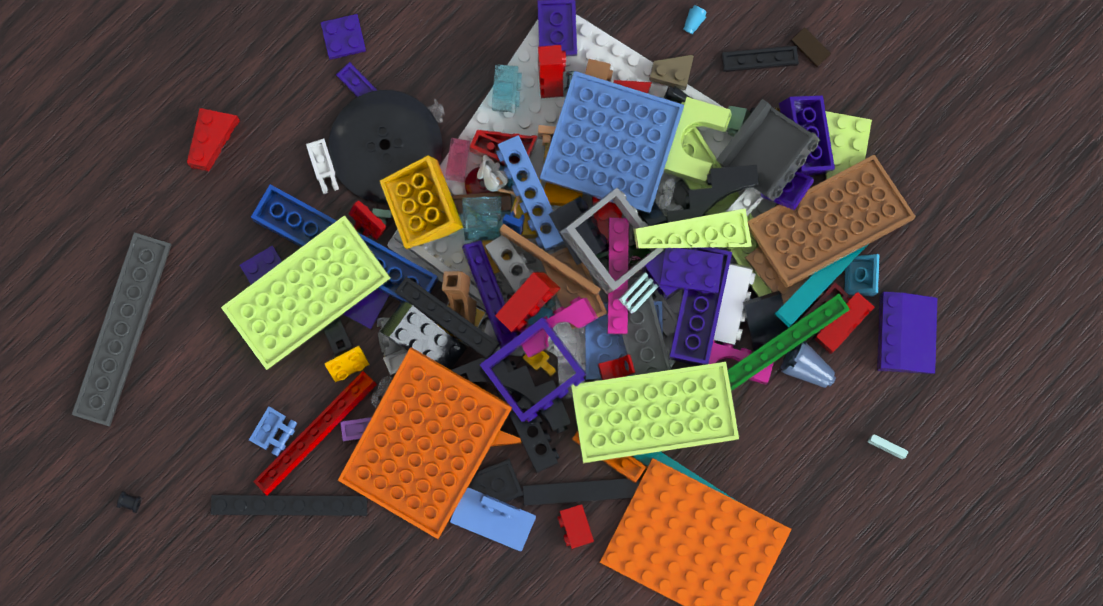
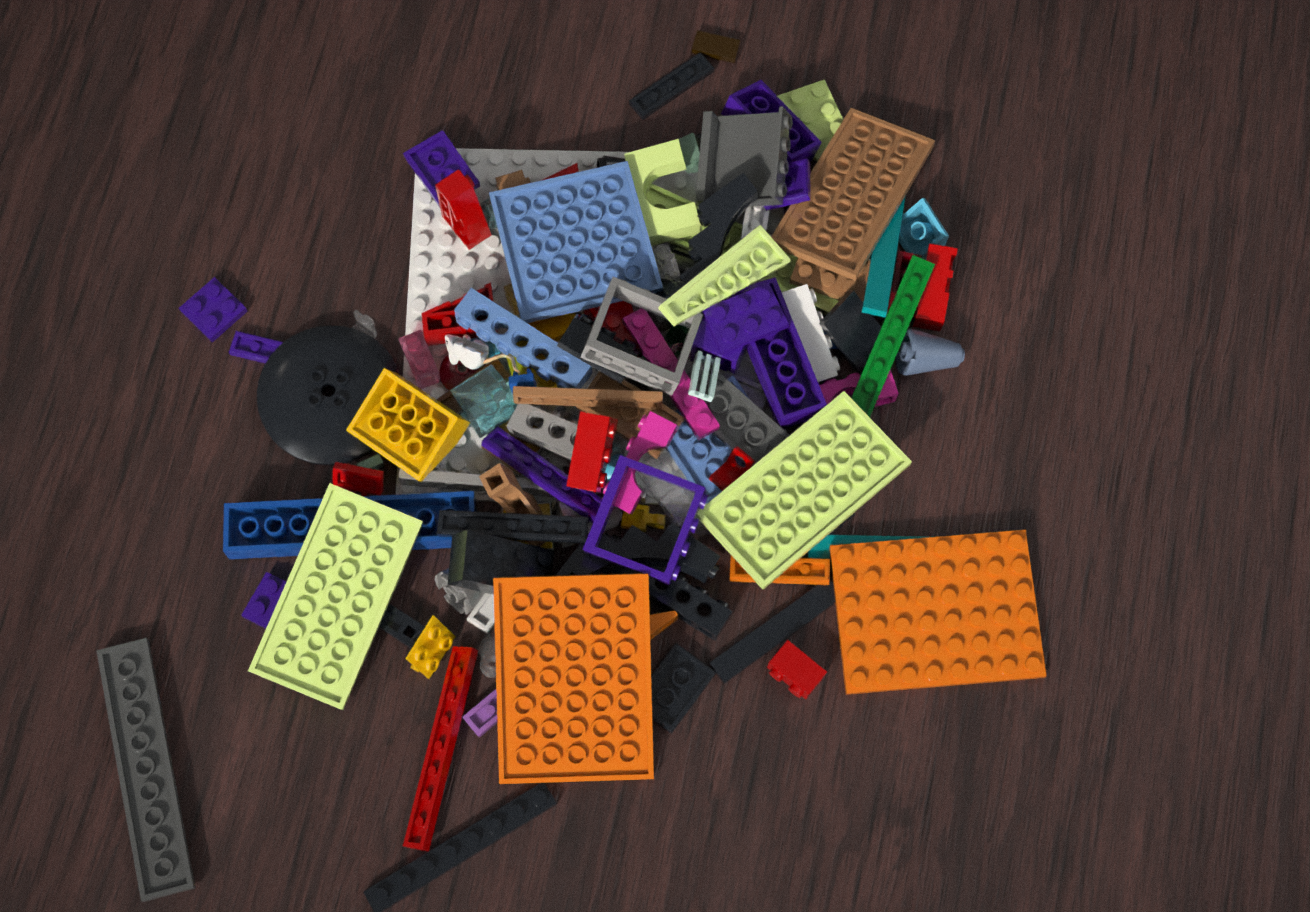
camera: 30 degrees left, 10 degrees down
(209, 137) = (124, 496): red wedge -> none
(267, 429) = (383, 775): medium blue plate -> none
(322, 163) = (270, 453): white hinge -> none
(368, 309) = (417, 577): dark purple tile -> none
(493, 519) = (701, 717): medium blue bracket -> none
(505, 93) = (426, 256): clear light blue brick -> none
(546, 132) = (498, 277): light nougat tile -> none
(672, 71) = (590, 145): dark tan wing -> none
(694, 19) = (579, 82): medium azure cone -> none
(888, 446) = (1063, 386): light aqua tile -> none
(907, 333) = (1002, 264): dark purple slope -> none

